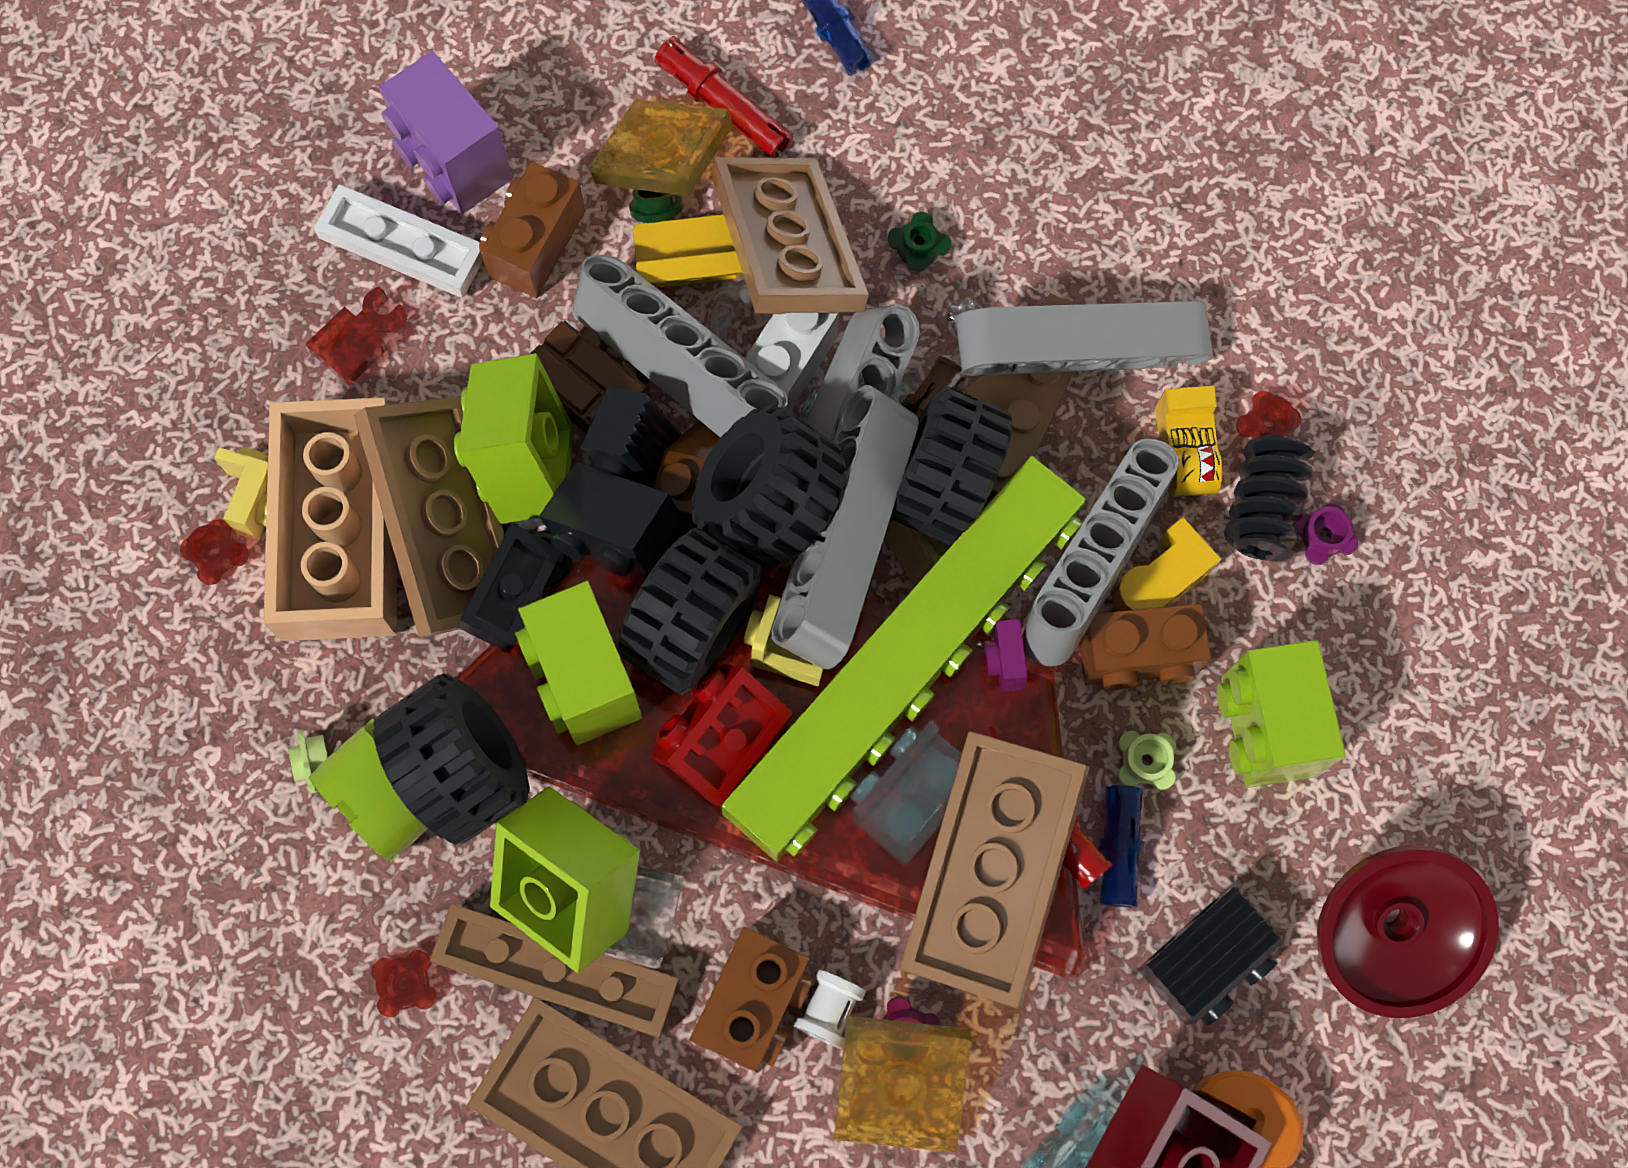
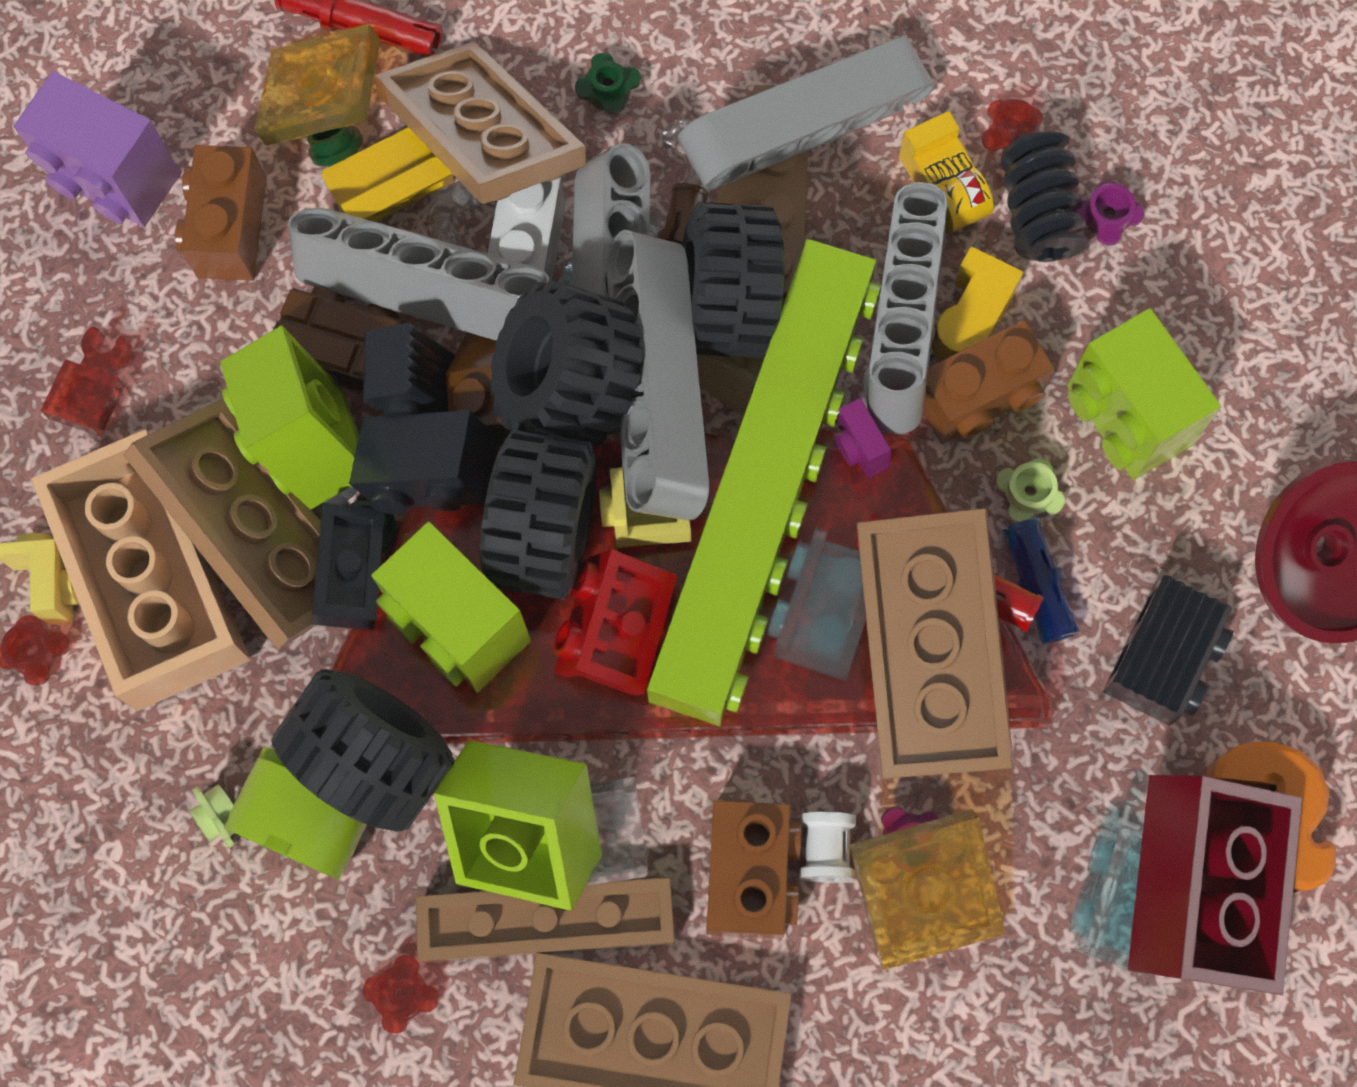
camera: 15 degrees left, 0 degrees up
(400, 241) = (93, 274): white plate -> none

